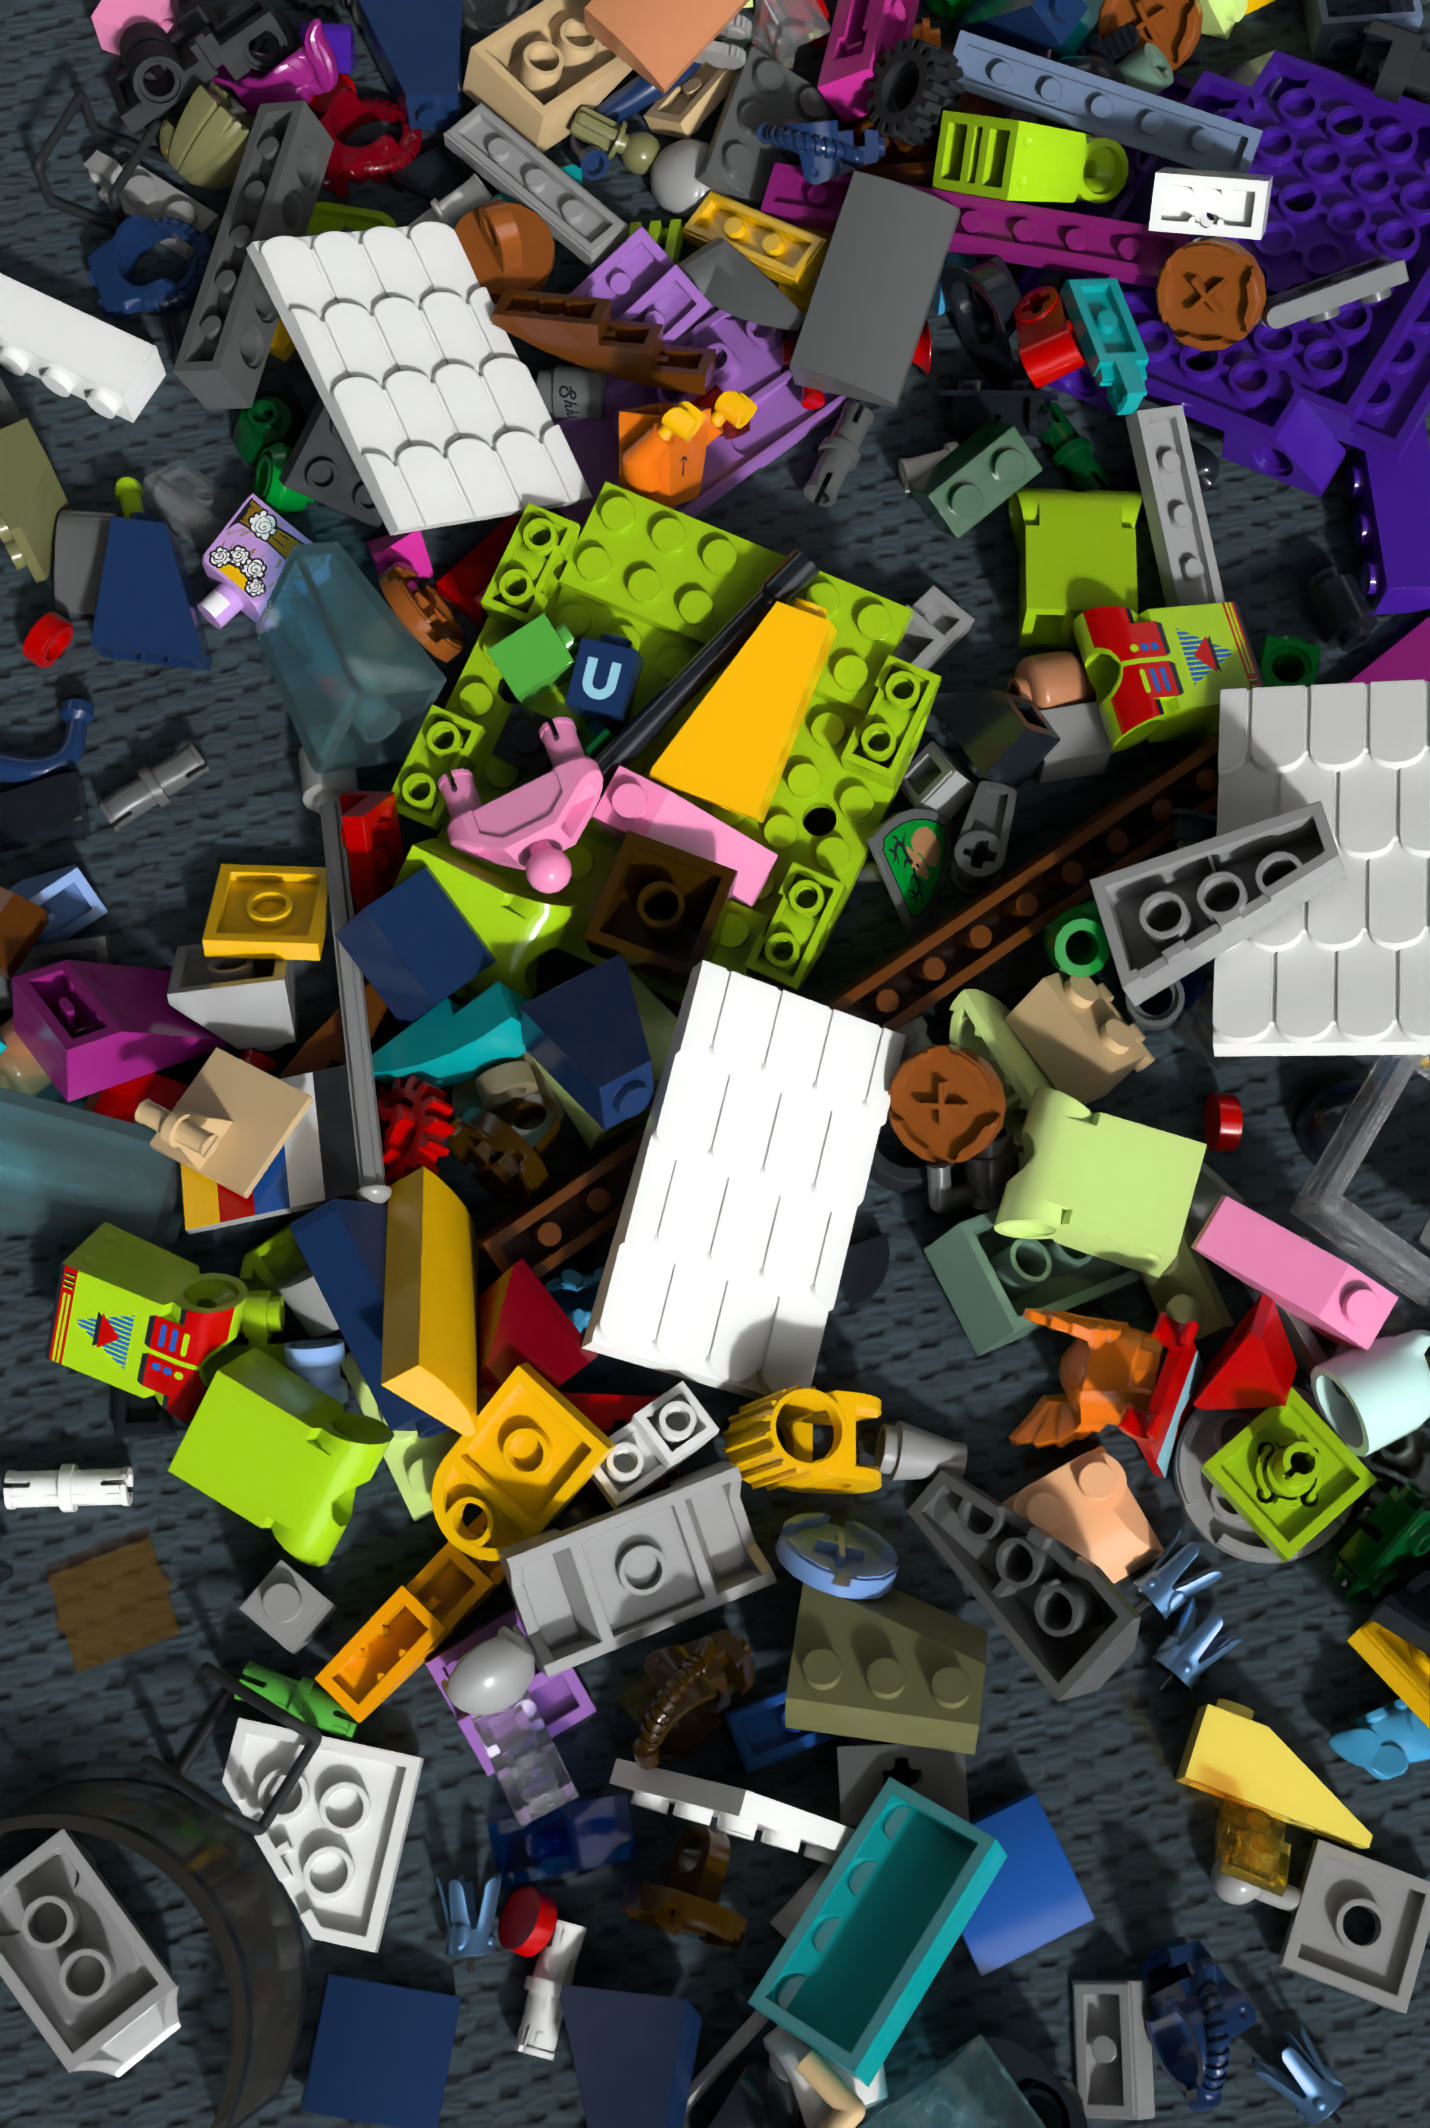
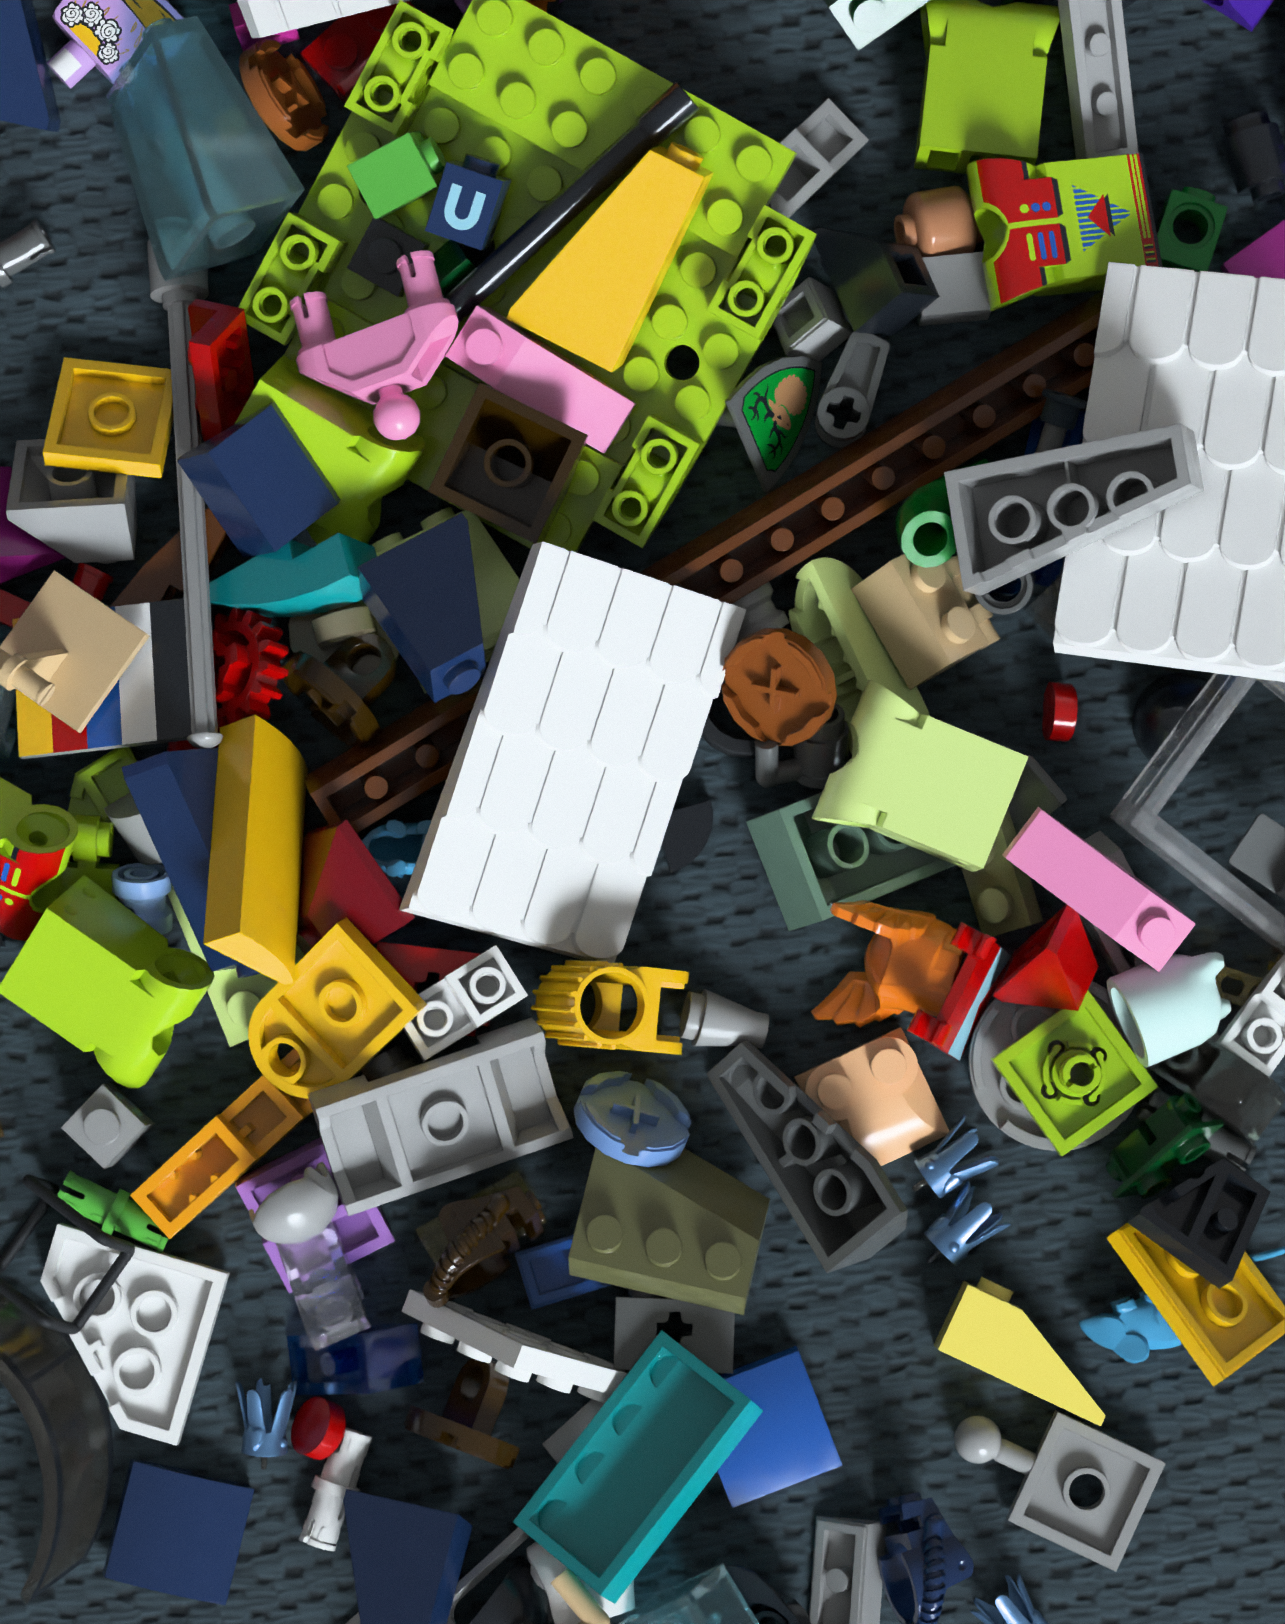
camera: 10 degrees right, 15 degrees up
(1252, 1847) = (992, 1419): clear yellow slope -> none

